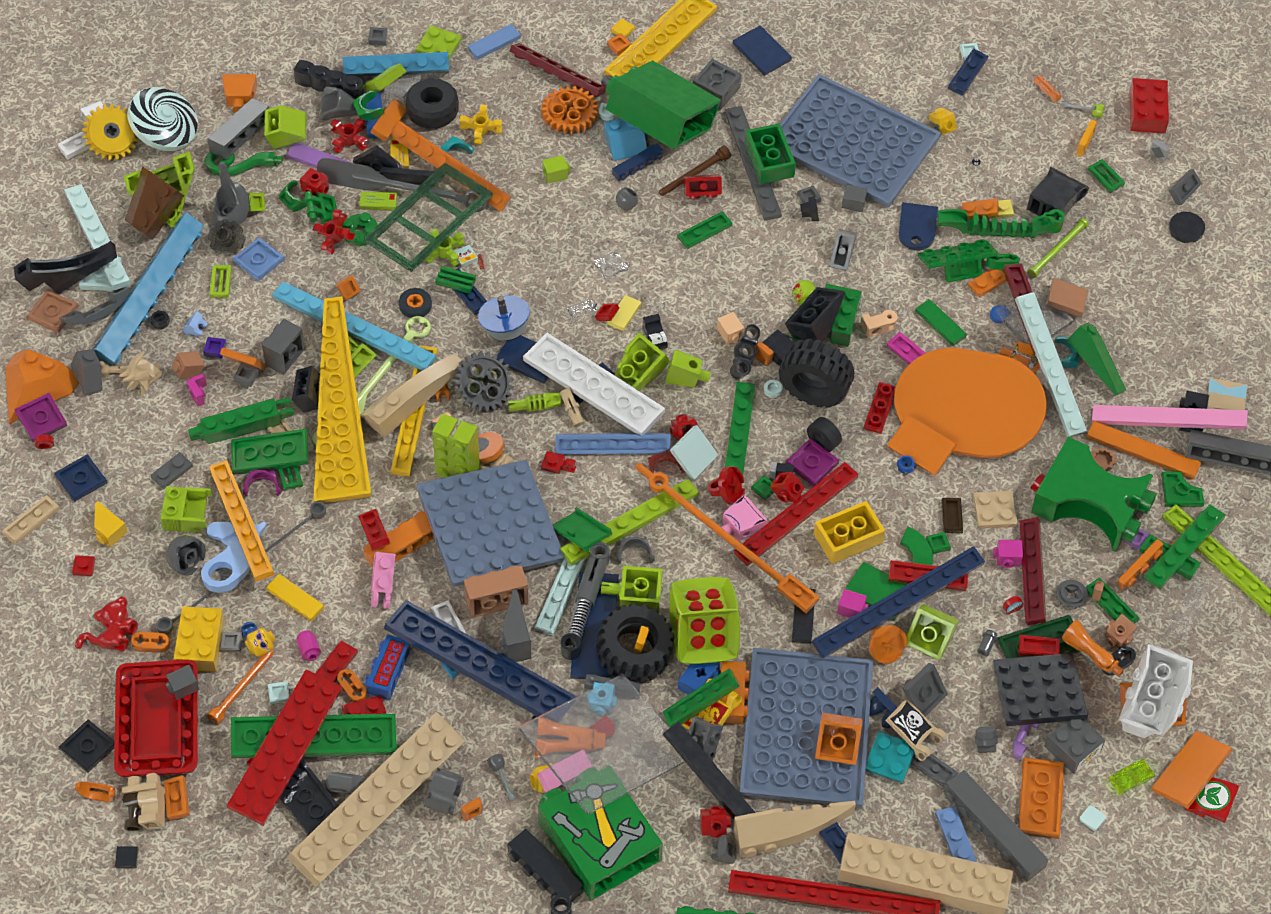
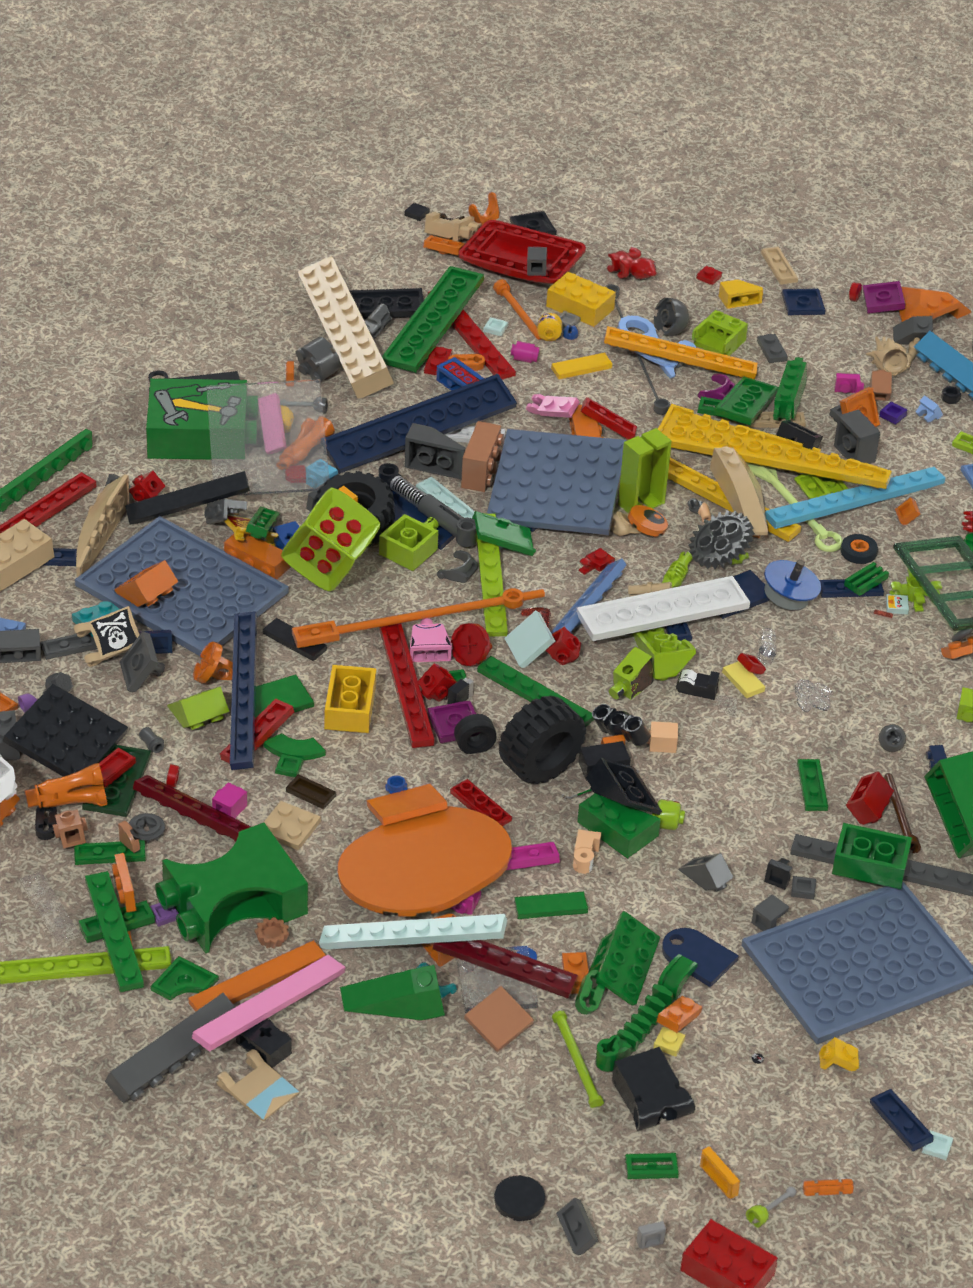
camera: 120 degrees right, 15 degrees down
(150, 642) = (610, 276): orange beam -> none
(284, 747) = (433, 294): red plate -> none
(851, 603) = (273, 667): dark pink brick -> none

